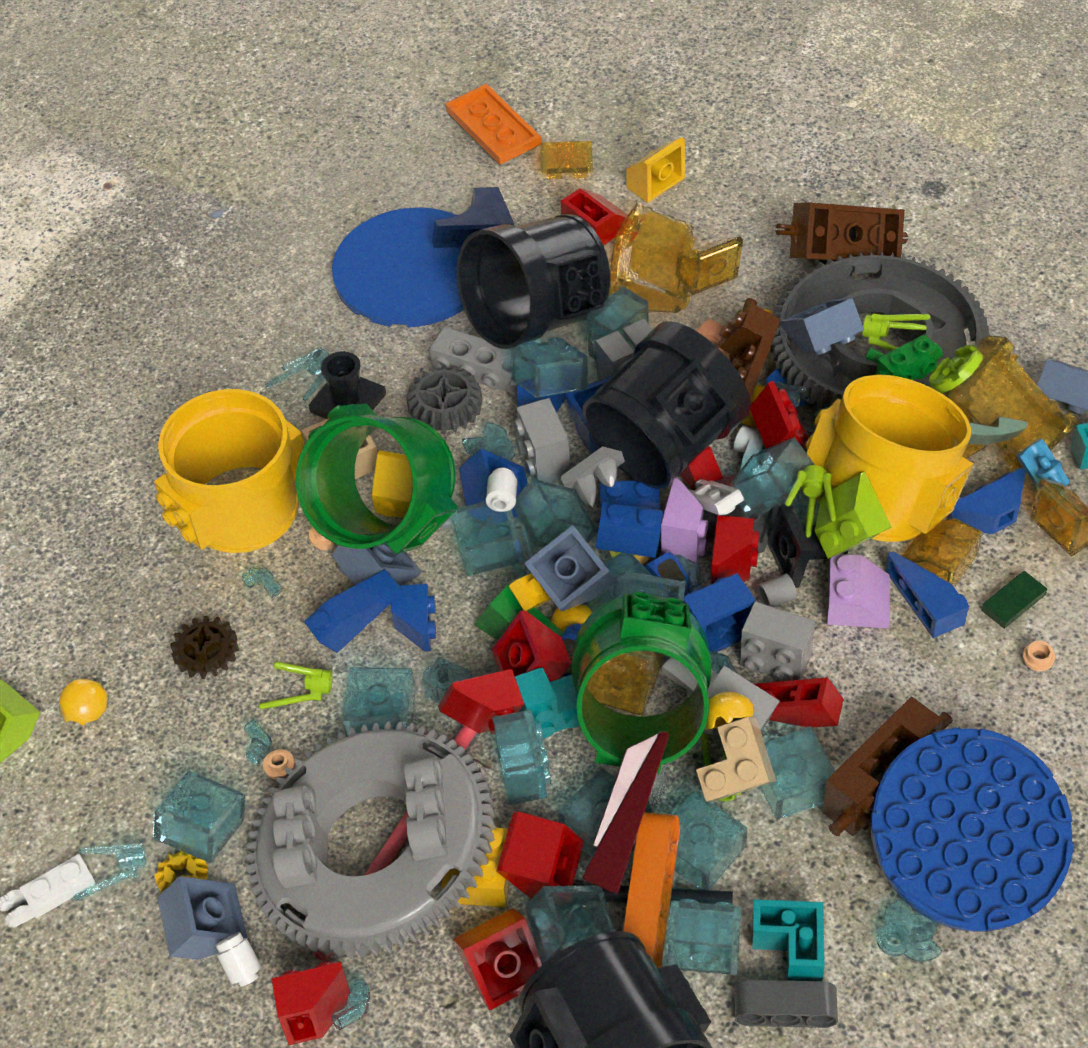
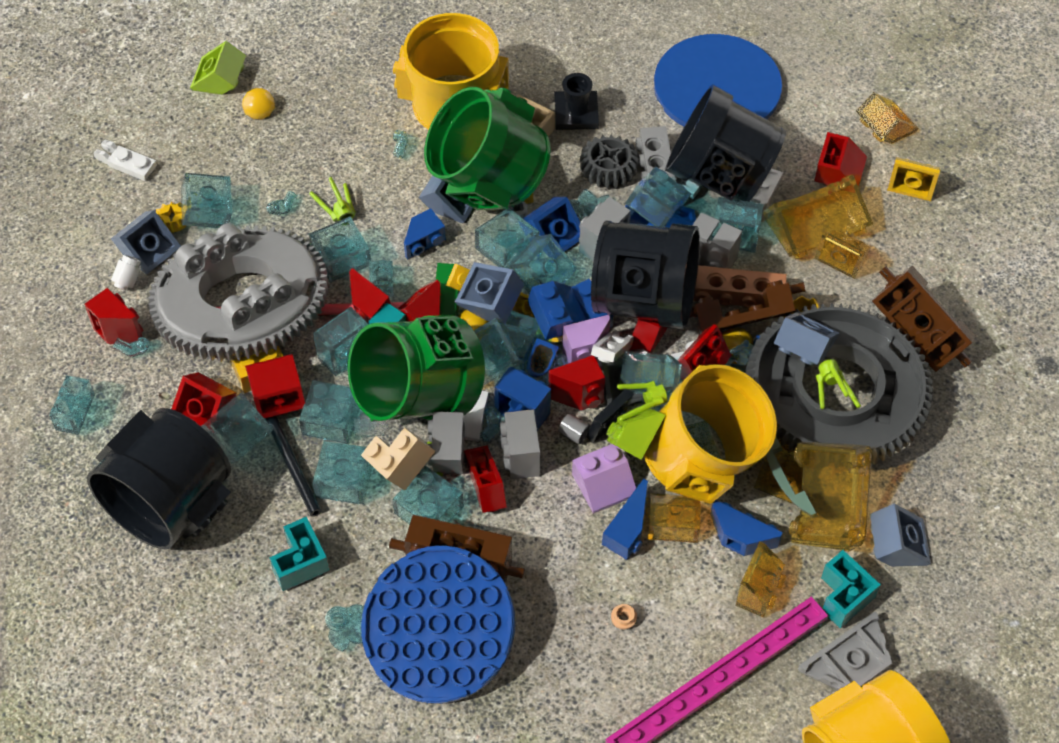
camera: 55 degrees right, 5 degrees up
(128, 856) = (166, 183): clear light blue plant -> none
(207, 646) = (331, 140): dark brown gear -> none
(275, 771) = (269, 221): light nougat plate -> none
(311, 362) = (594, 74): clear light blue plant -> none
(351, 611) = (397, 197): blue slope -> none
(486, 211) = (776, 100): dark blue arch -> none
(493, 124) = (887, 60): orange plate -> none
(501, 490) = (535, 223): white brick -> none
(598, 466) = (582, 269): light grey tile -> none
(625, 812) = (319, 411): dark red wedge -> none
(652, 881) = (281, 458): orange beam -> none
(704, 936) = (269, 502): clear light blue brick -> none
(726, 706) = (422, 427): yellow hair -> none
(786, 1003) = (254, 575): dark grey beam -> none
(909, 361) = (803, 404): green brick -> none
(953, 372) = (817, 437): lime tile -> none
(1014, 599) = (666, 581): dark green tile -> none
(1041, 463) = (790, 545): dark azure hips -> none

